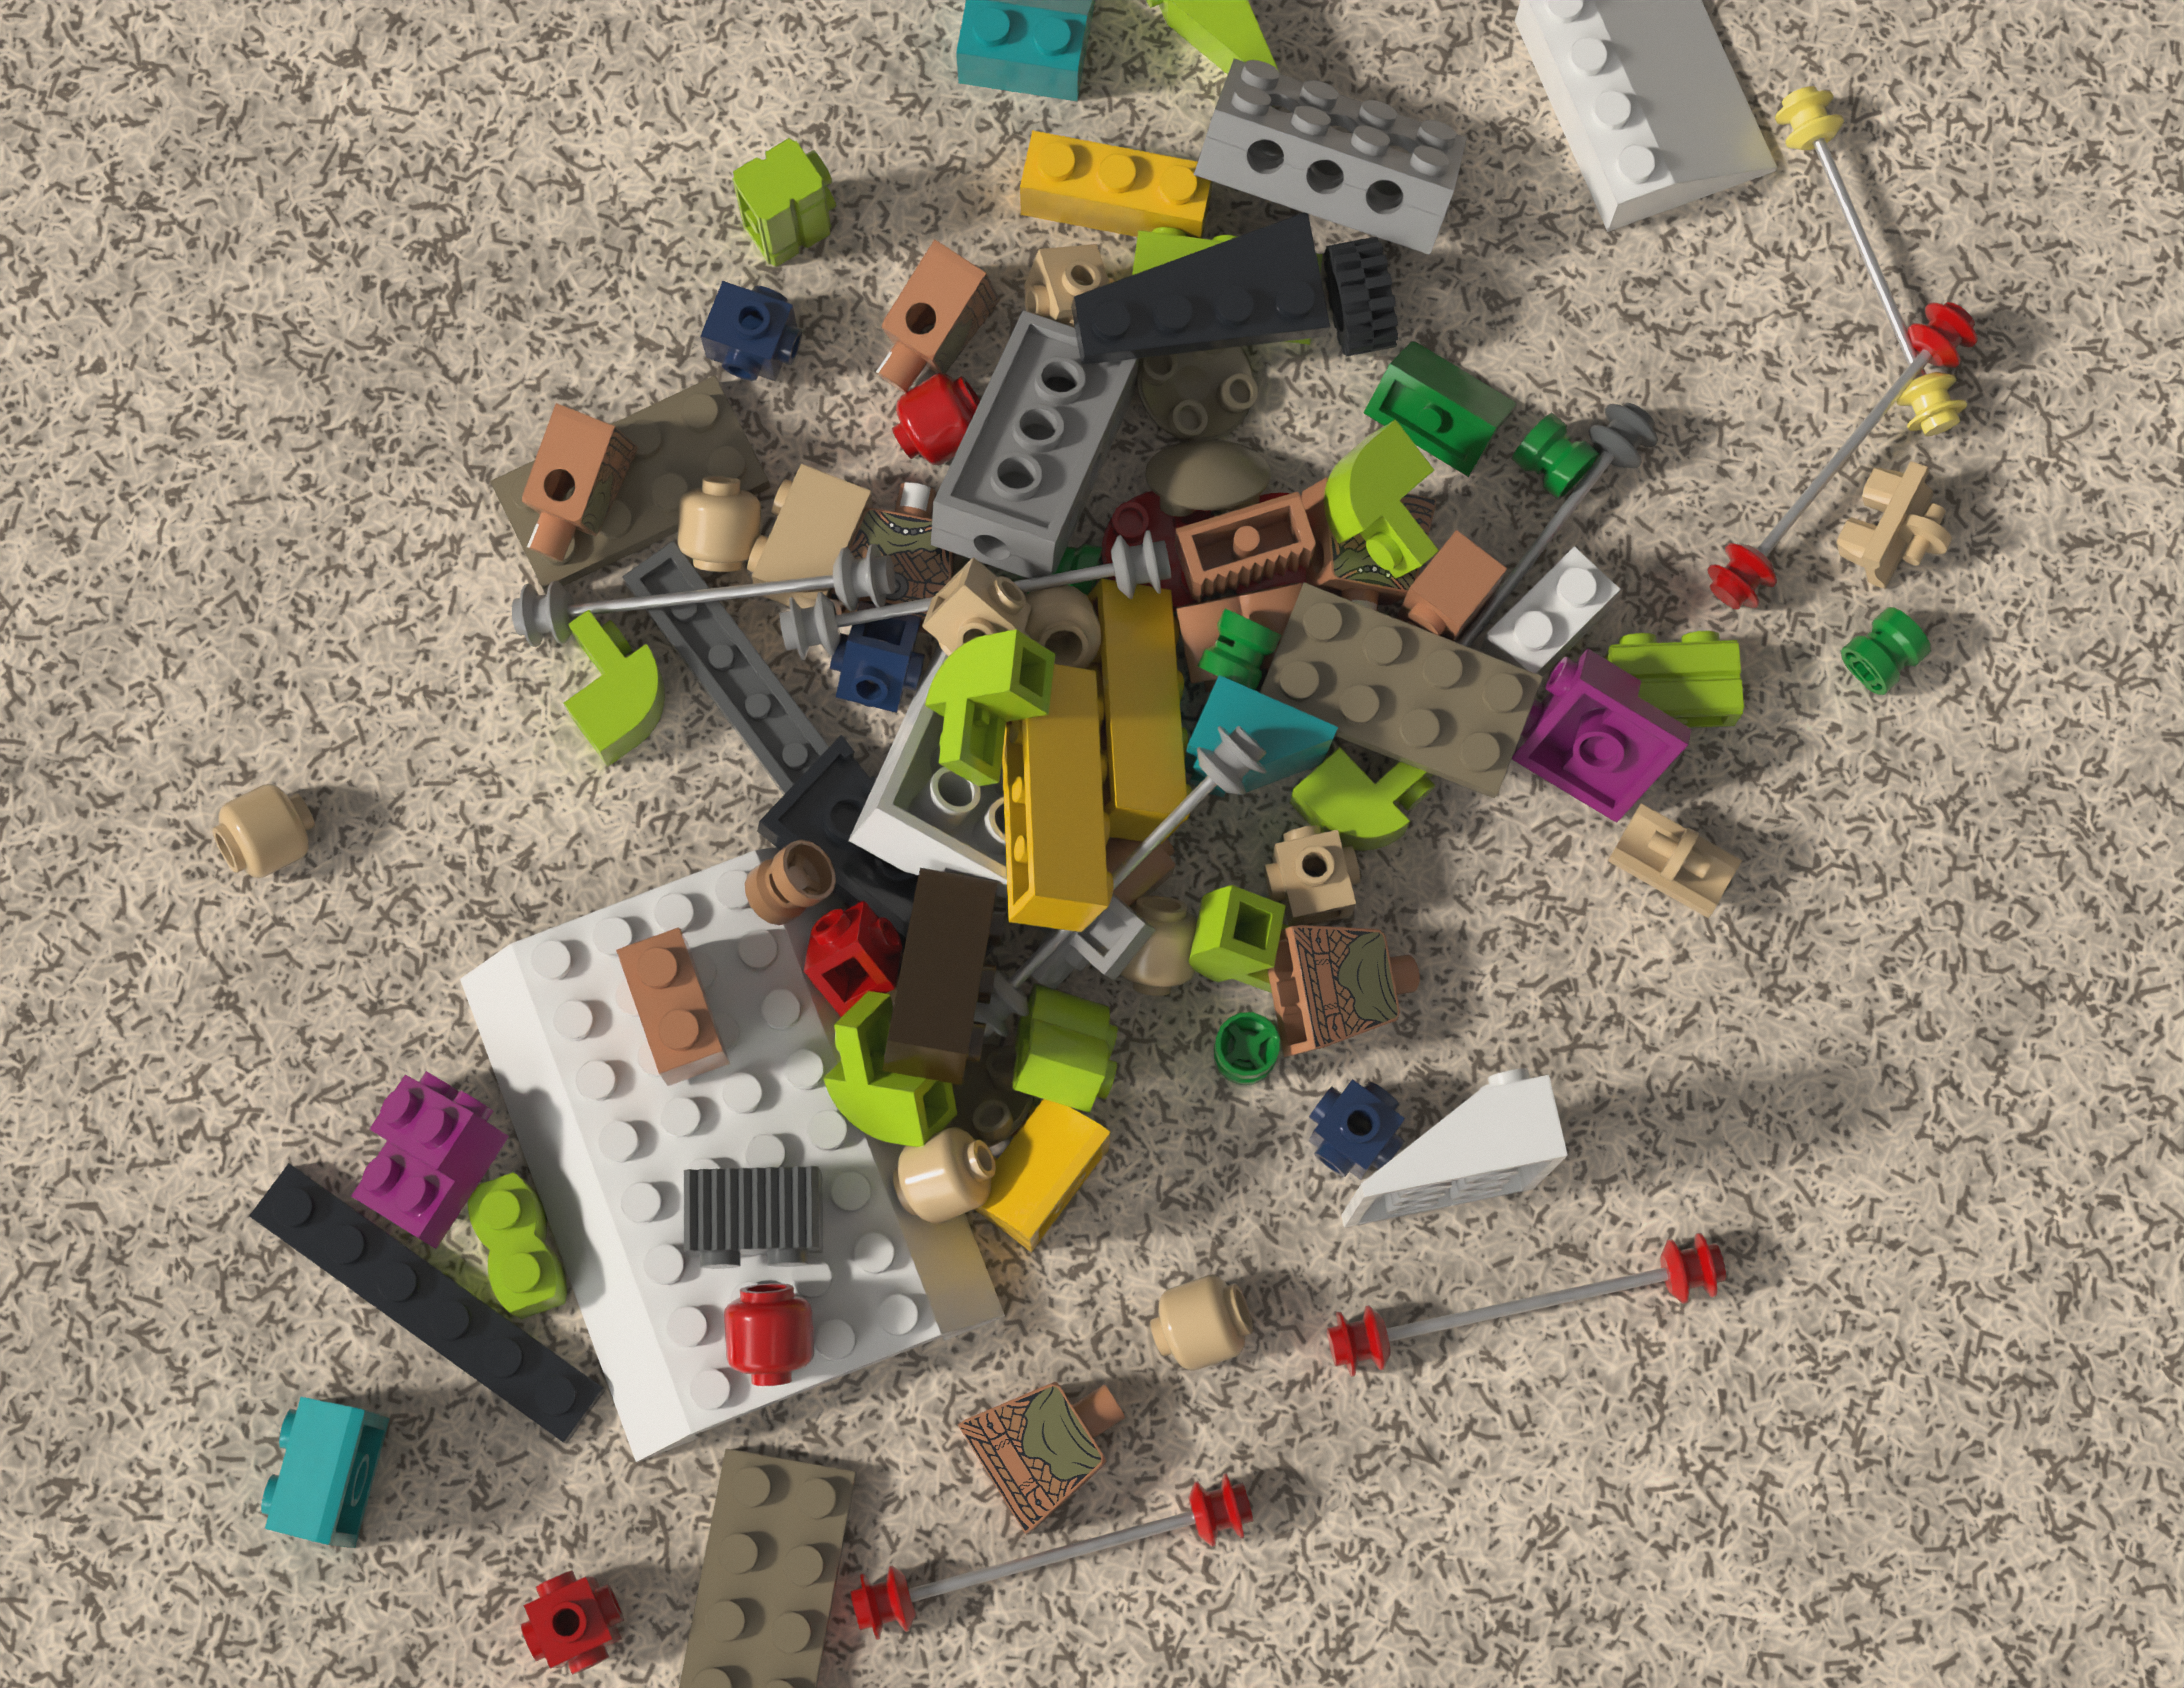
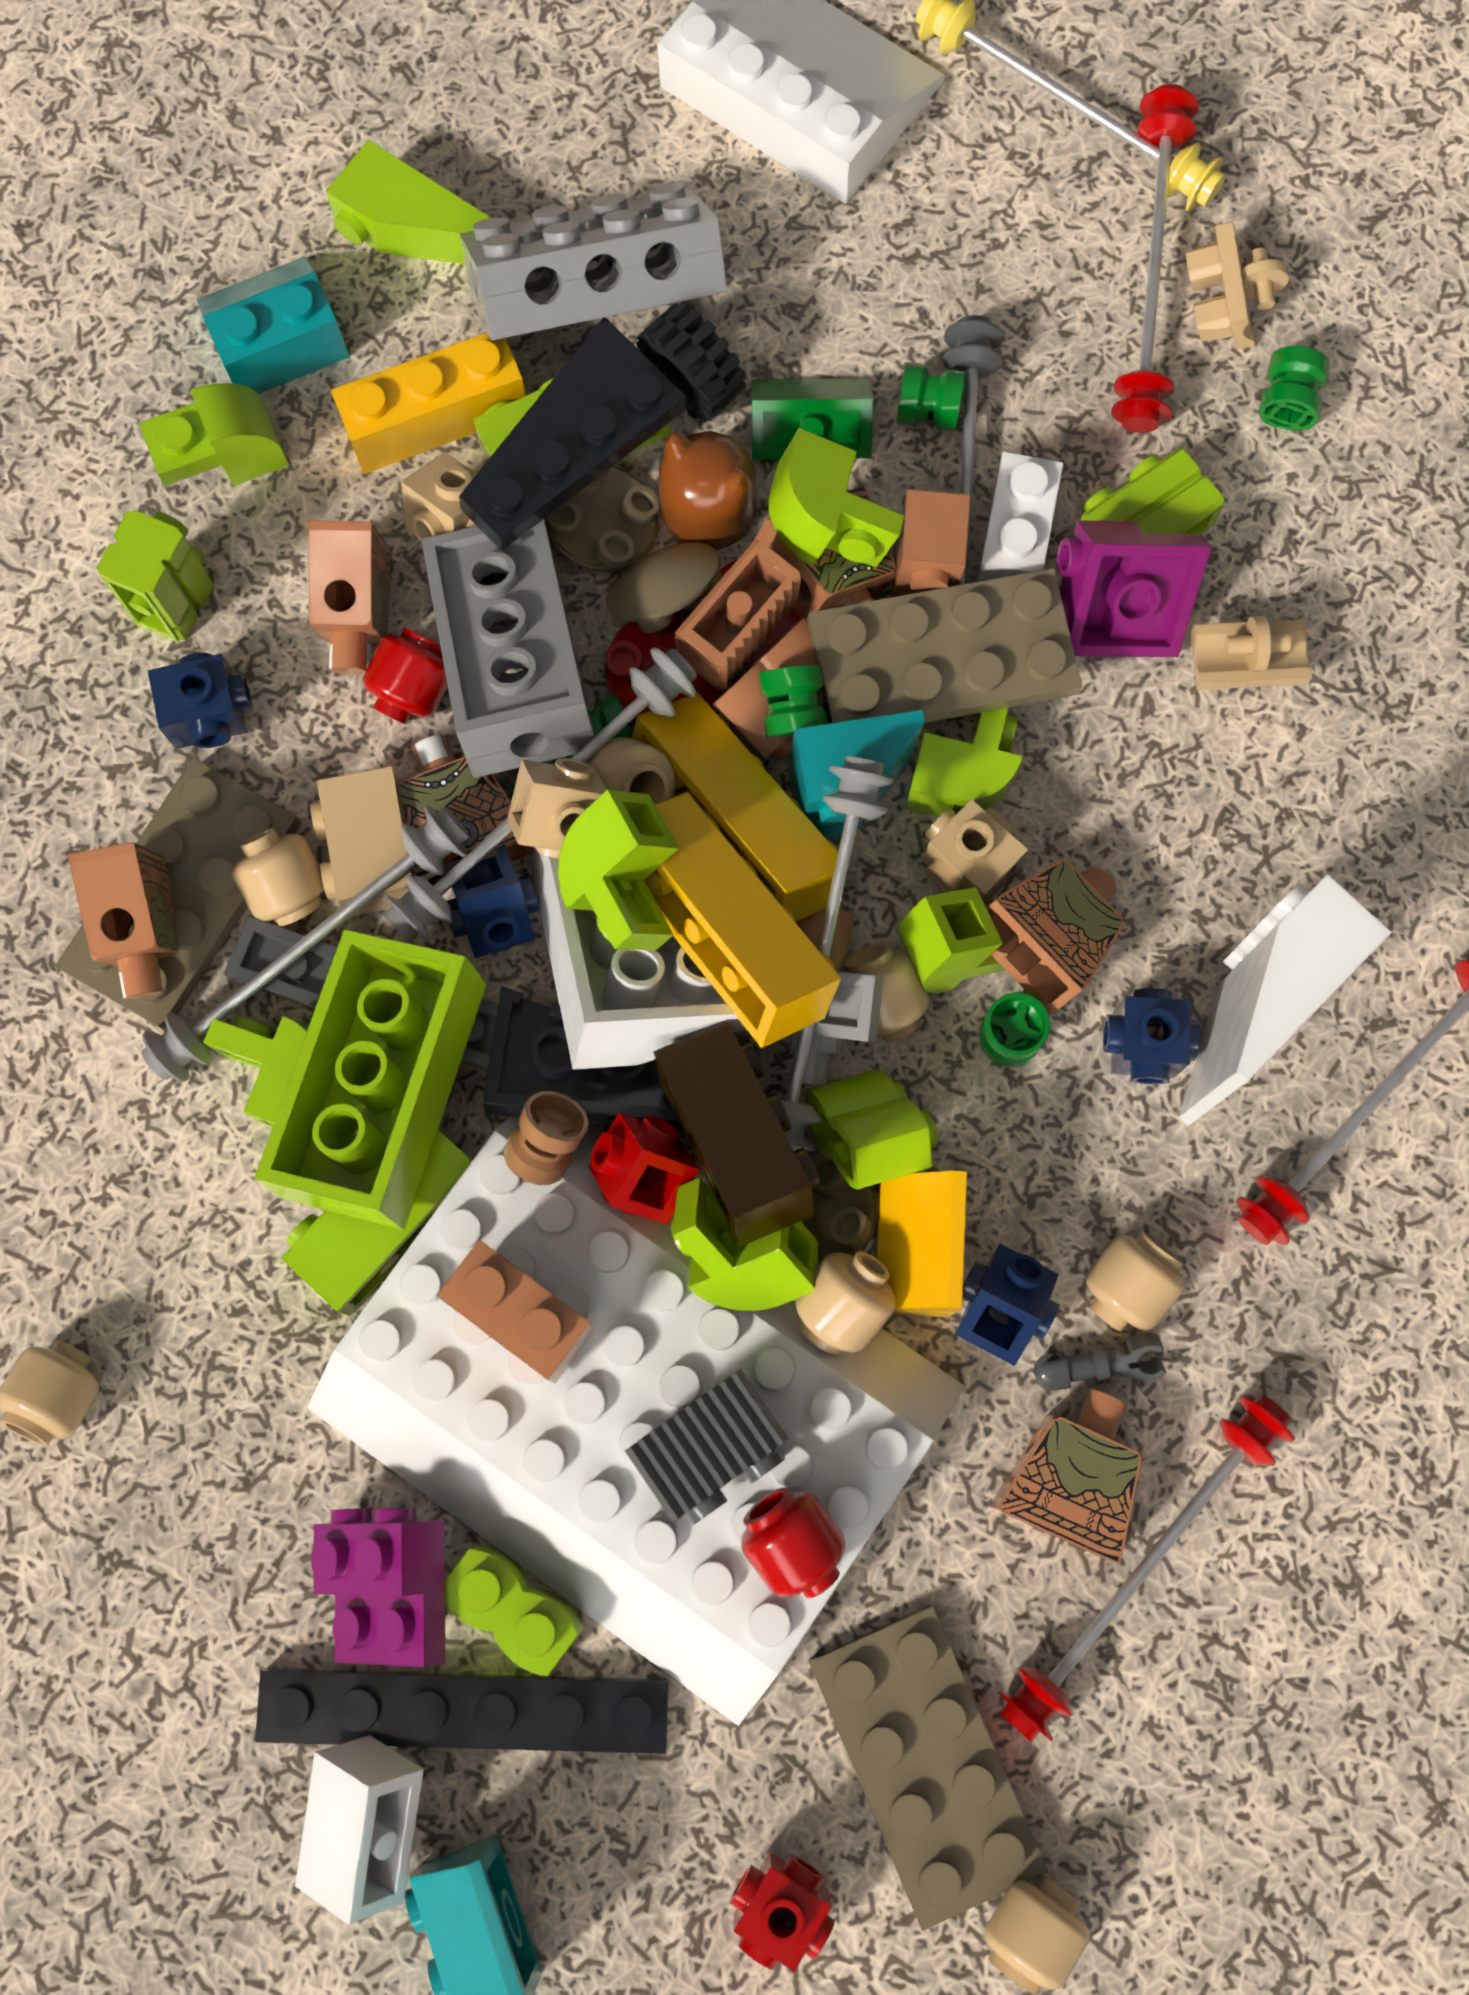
camera: 30 degrees left, 0 degrees up
(287, 1332) = (359, 1828): none -> white brick
(616, 856) = (352, 1256): none -> lime brick
(683, 743) = (372, 1079): none -> lime brick
(919, 104) = (221, 428): none -> lime brick
(1081, 1268) = (1007, 1304): none -> dark blue brick
(1090, 1355) = (1057, 1371): none -> dark grey piece
(1301, 417) = (707, 489): none -> dark orange piece

